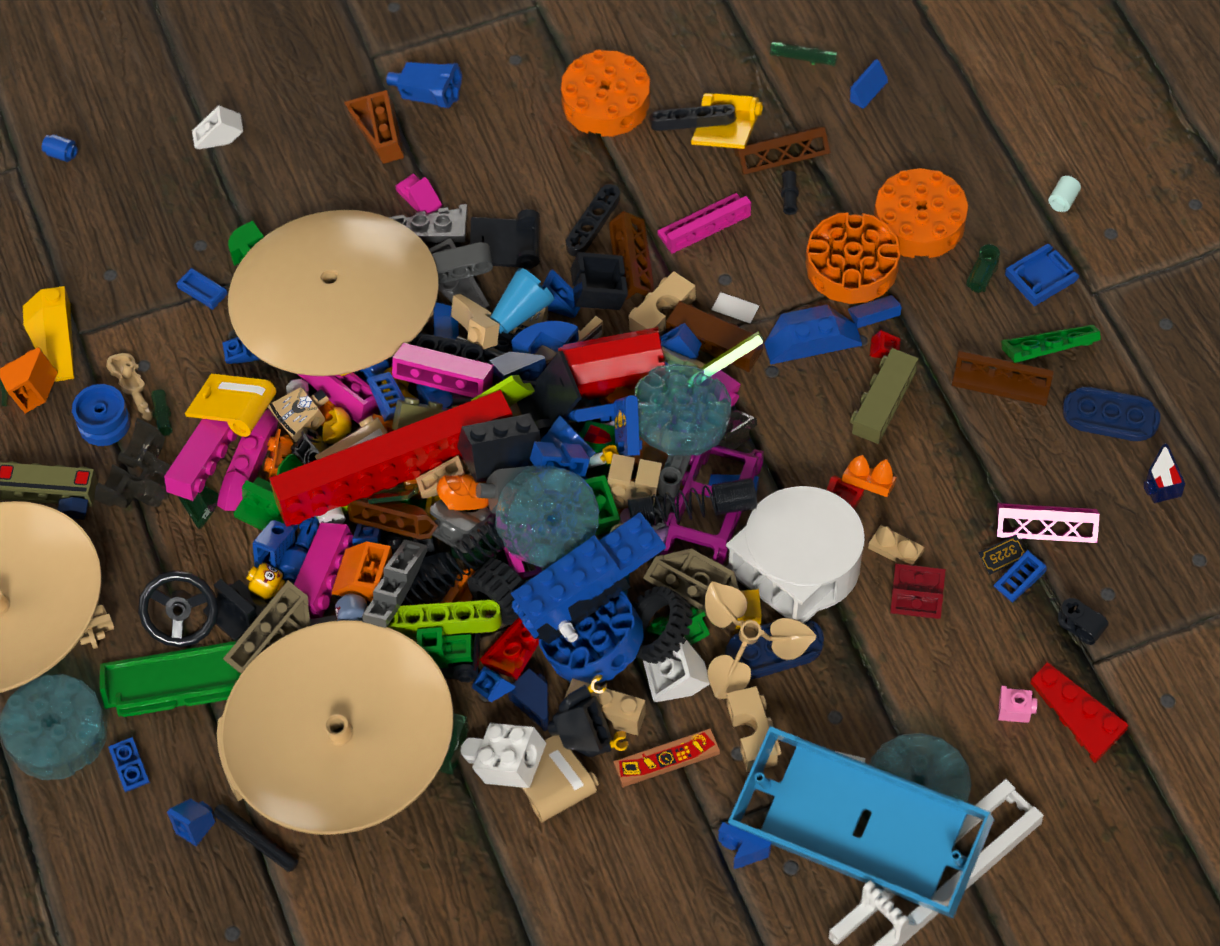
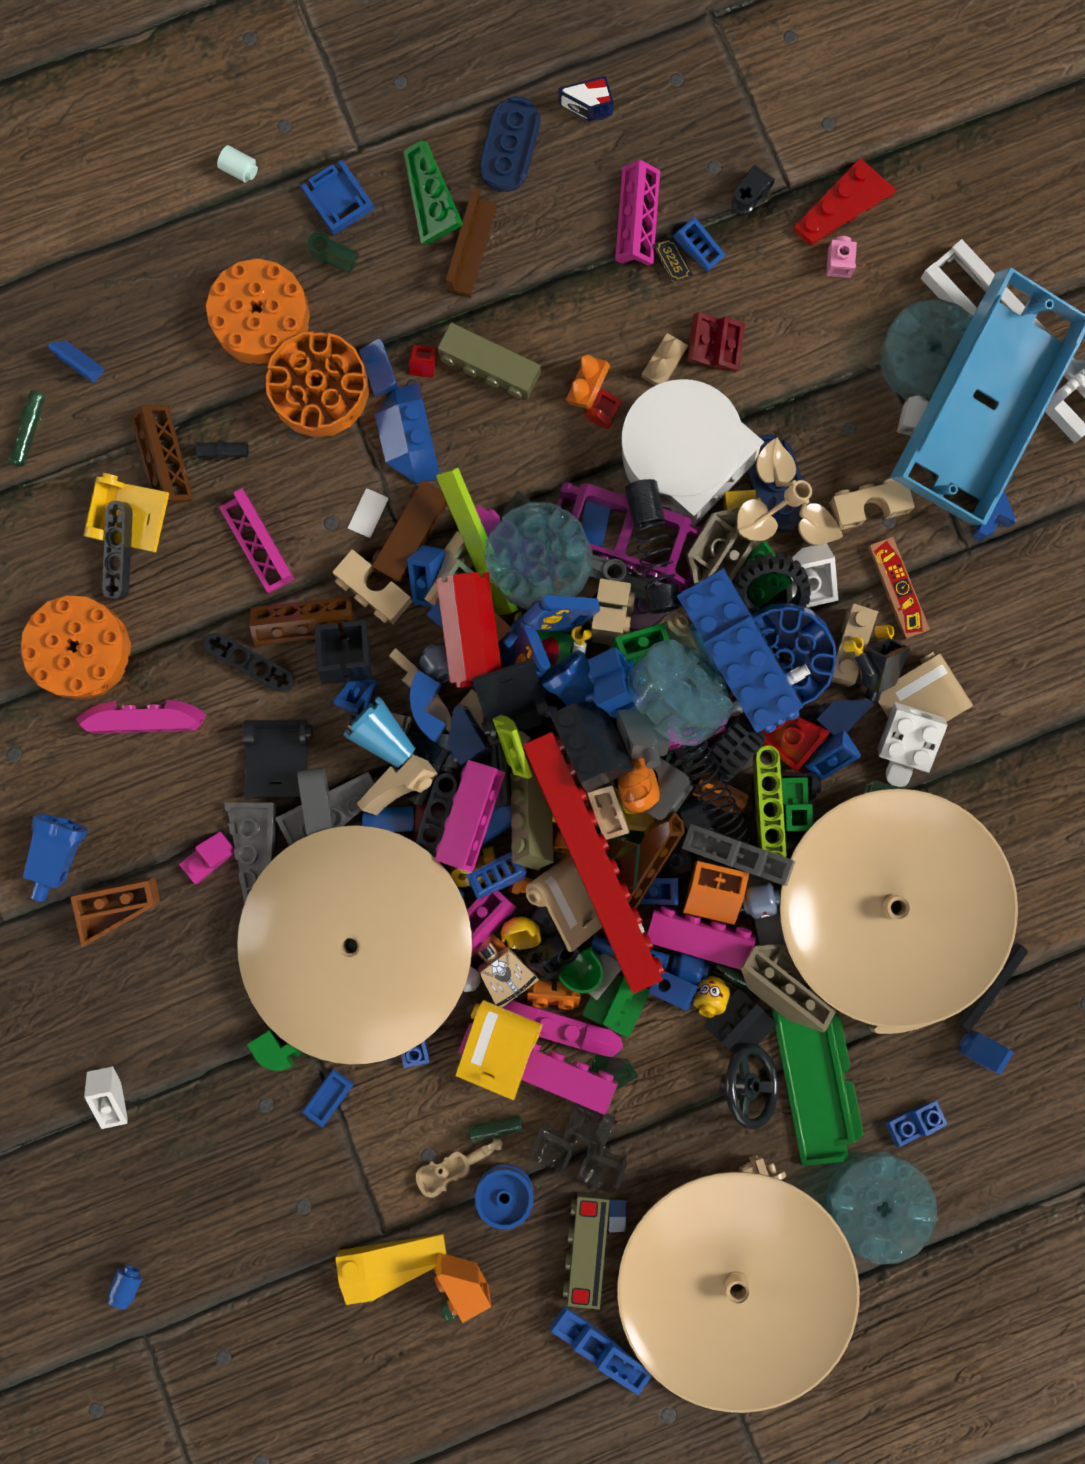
camera: 95 degrees left, 25 degrees up
(542, 130) = (175, 717): none -> dark pink brick

